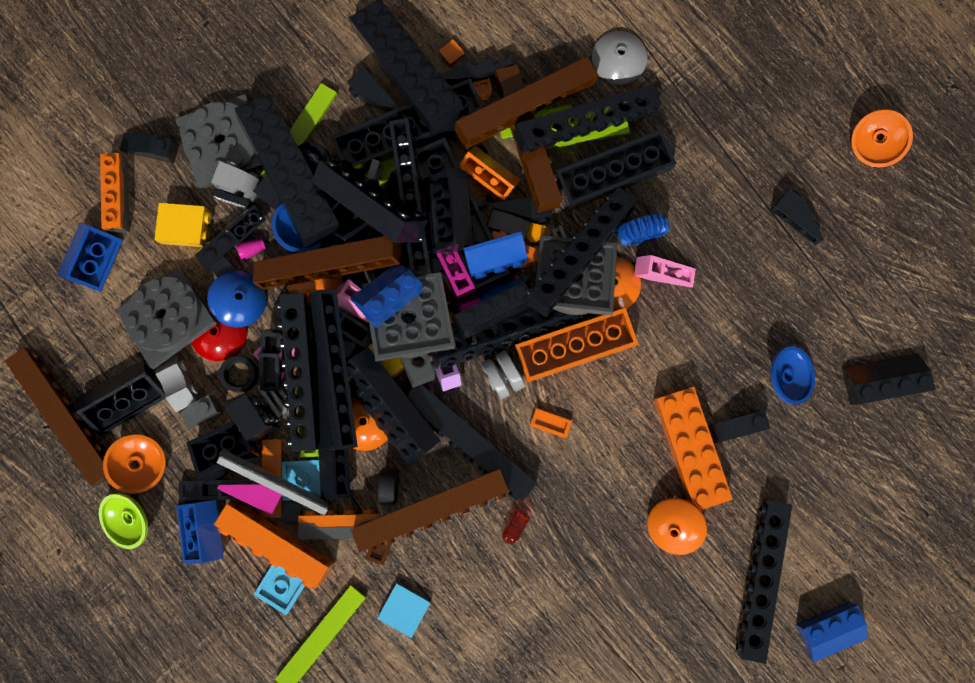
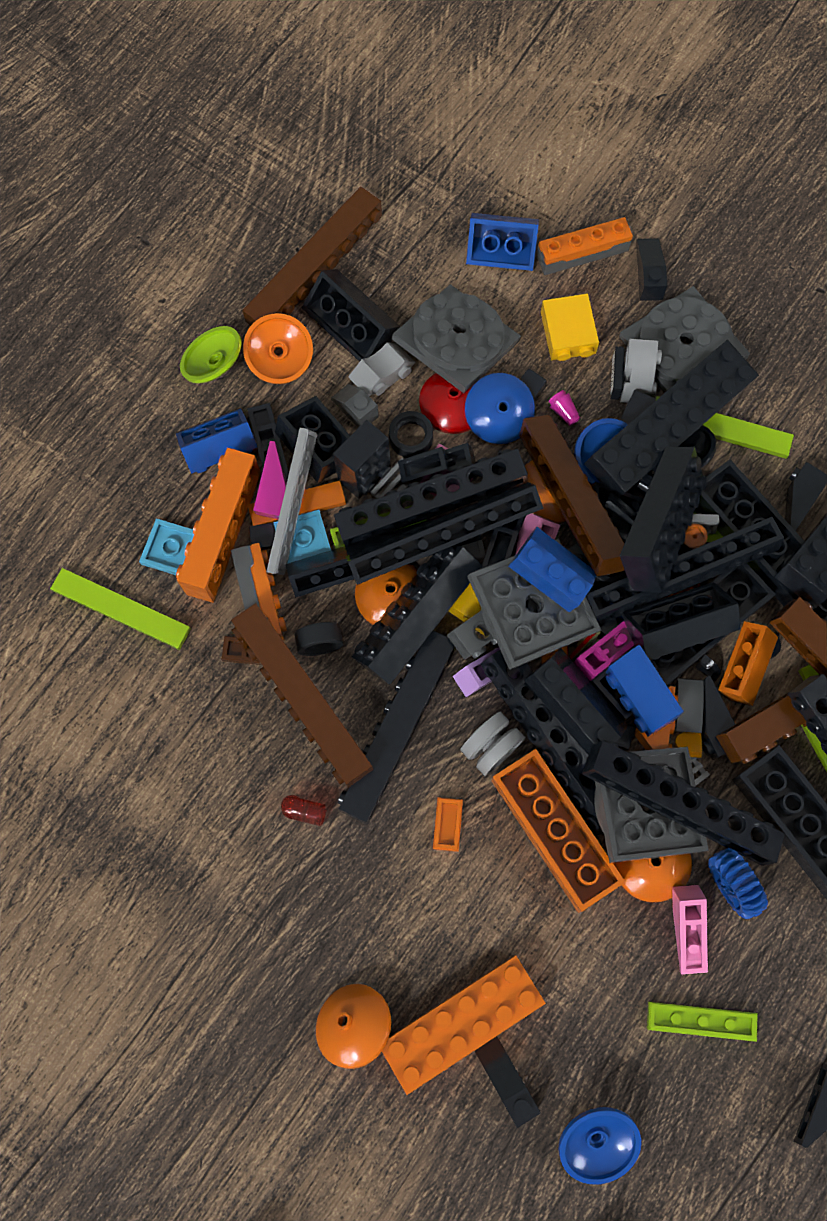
camera: 75 degrees right, 10 degrees down
(229, 235) = (572, 380): black slope -> none
(386, 180) = (695, 536): none -> orange tile
(404, 610) = (172, 698): medium azure tile -> none
(726, 282) = (702, 1021): none -> lime tile
(759, 649) = (211, 1182): black brick -> none

